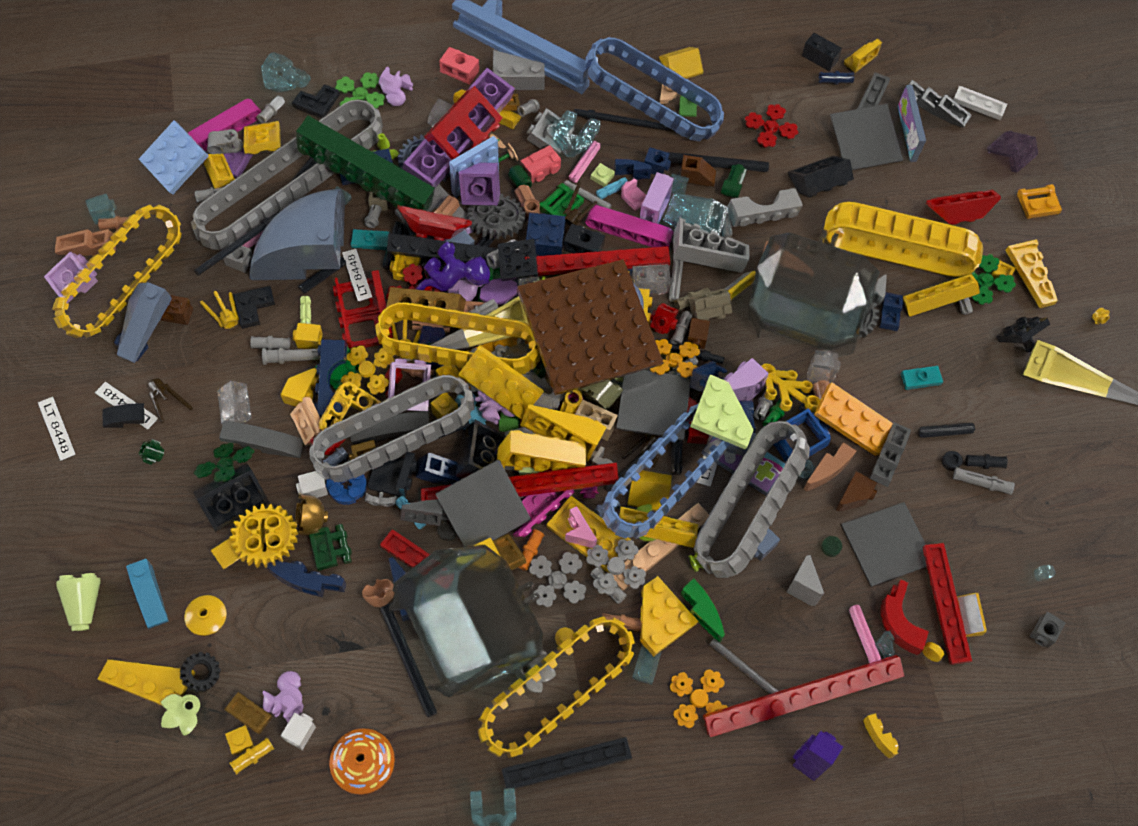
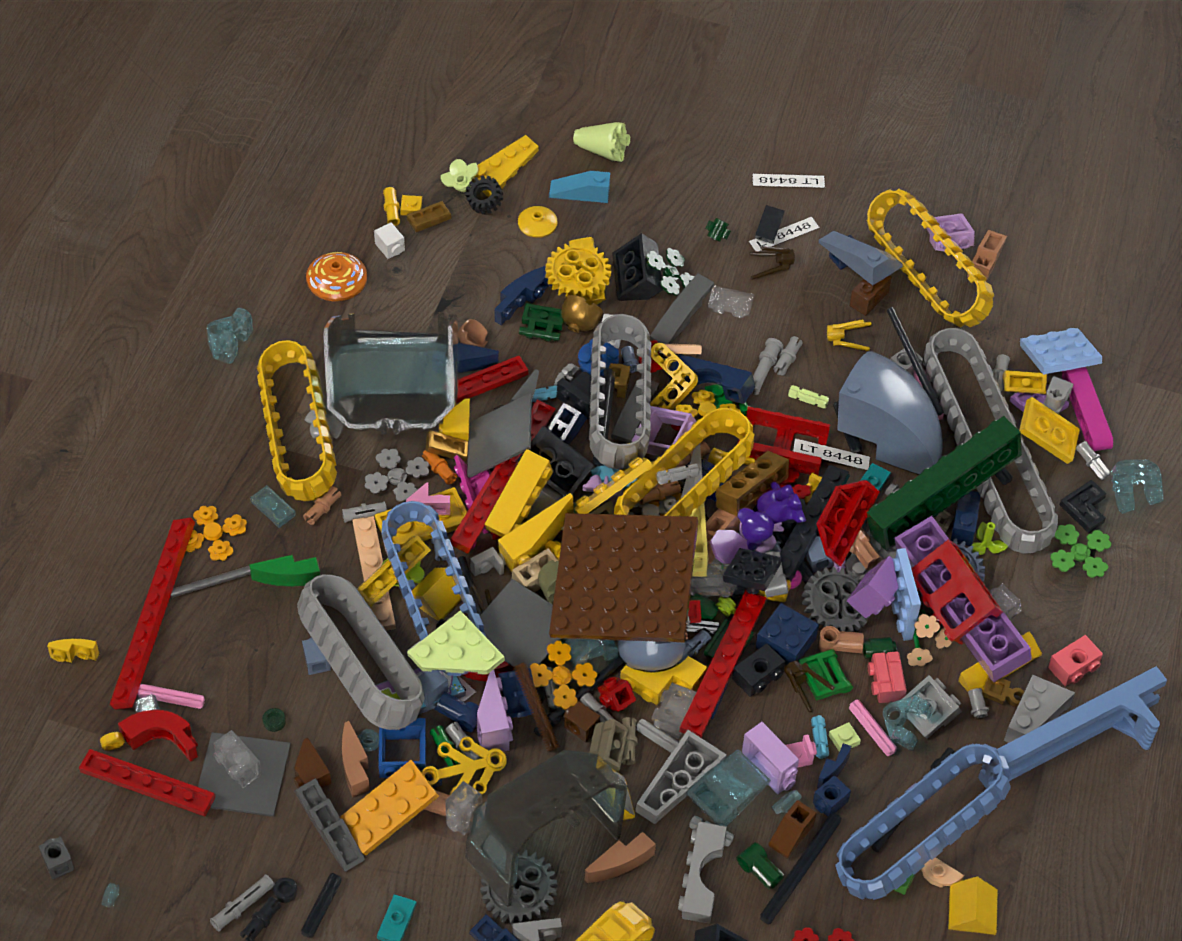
camera: 120 degrees right, 10 degrees down
(101, 207) = (1024, 278): clear light blue brick -> none
(111, 223) = (1002, 287): nougat pin -> none
(249, 302) = (842, 354): black plate -> none
(288, 700) = (422, 243): lavender animal -> none
(300, 387) = (718, 352): yellow slope -> none
(307, 336) = (776, 386): yellow brick -> none
(392, 84) = (1076, 582): lavender animal -> none
(473, 328) = (677, 473): none -> light grey axle
(485, 308) = (712, 516): light grey axle -> none
(563, 634) = (341, 456): yellow plate -> none
(567, 763) = (229, 407): black plate -> none
(588, 196) = (825, 708): light grey bar -> none
(616, 566) = (374, 518): light grey plant -> none
(629, 227) = (769, 711): dark pink beam -> none
(662, 617) = (304, 533): yellow plate -> none
(714, 358) = (536, 706): none -> reddish brown axle
(806, 583) = (249, 661): light grey slope -> none
(817, 754) = (90, 562): dark purple brick -> none
(887, 546) = (237, 759): none -> clear brick
(972, 615) = (121, 800): flat silver slope -> none

